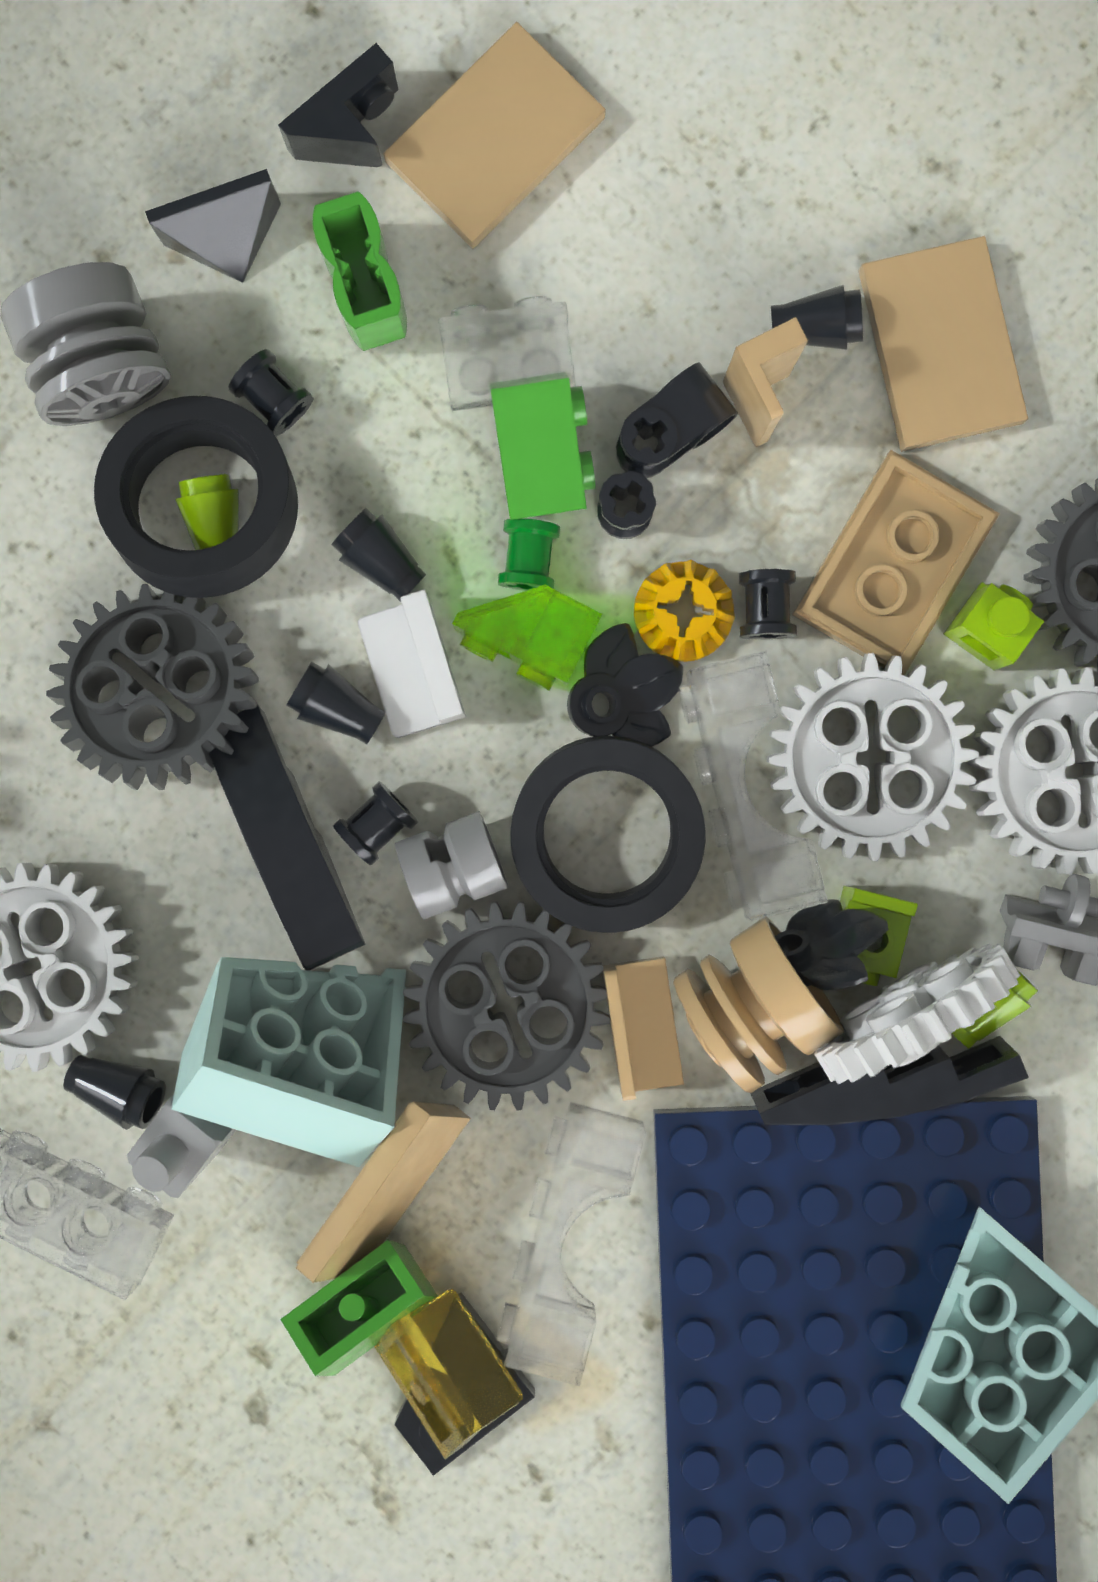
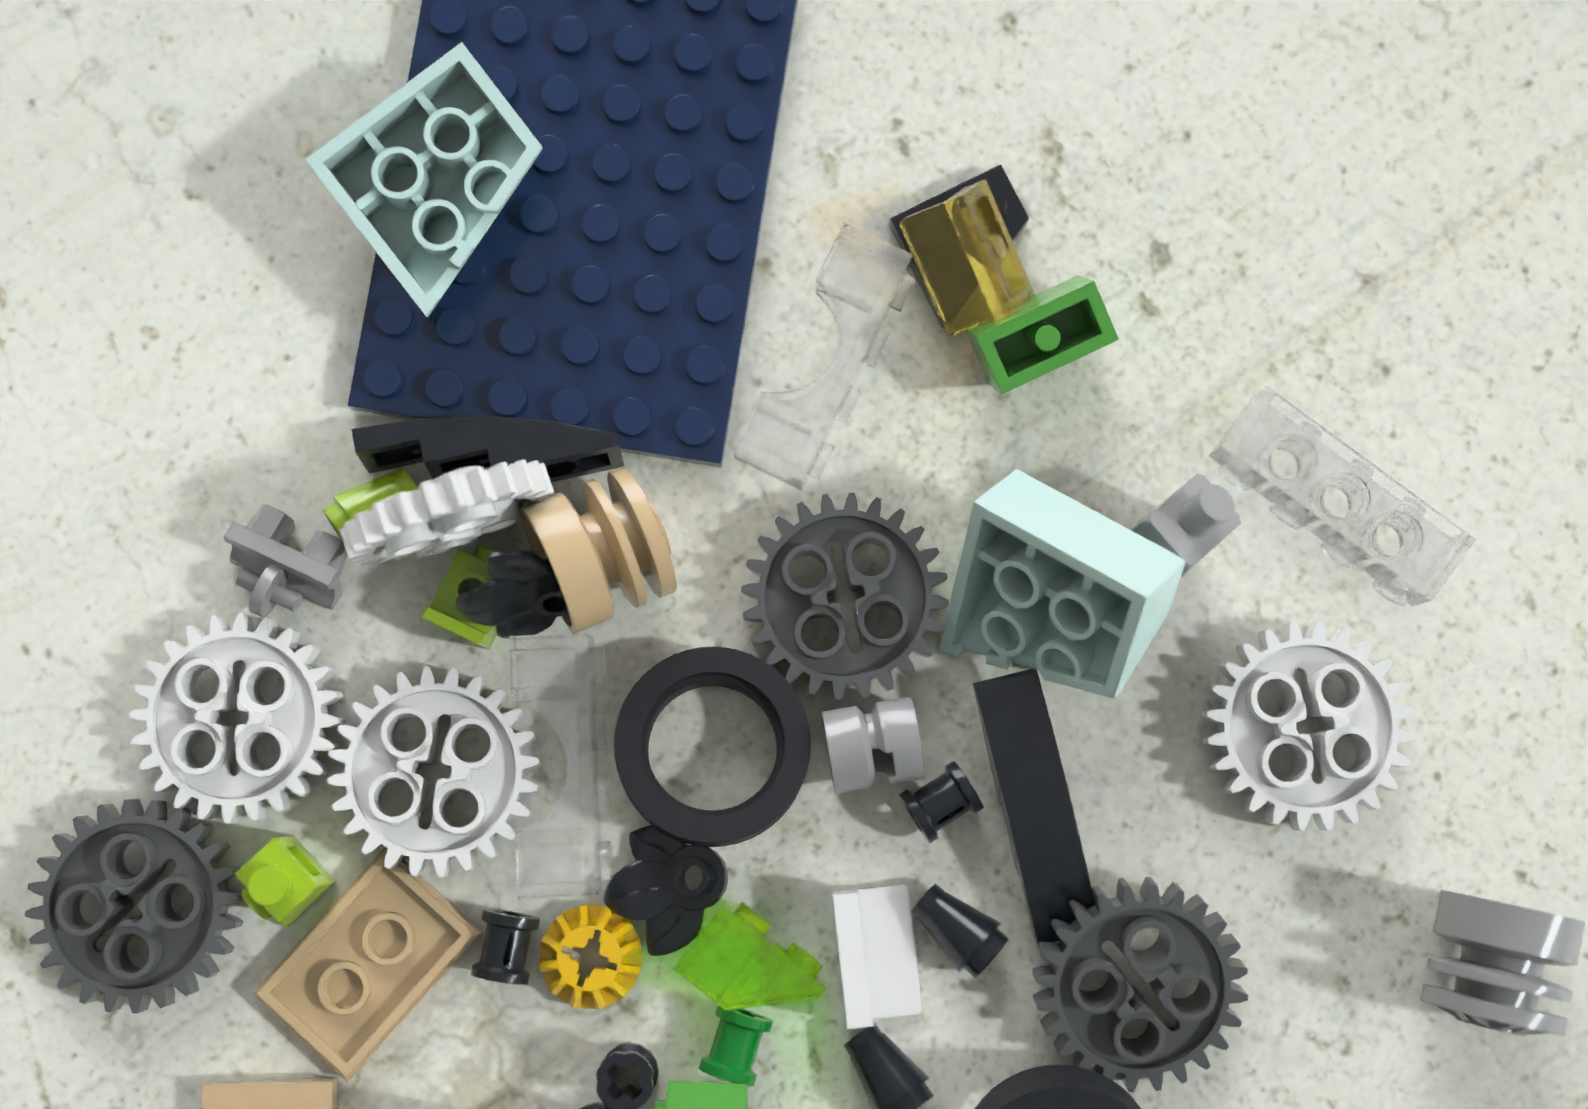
camera: 170 degrees left, 5 degrees down
(116, 1090) = (1243, 587): black cone -> none
(383, 1189) = (996, 443): tan tile -> none
(642, 1025) = (715, 551): tan panel -> none

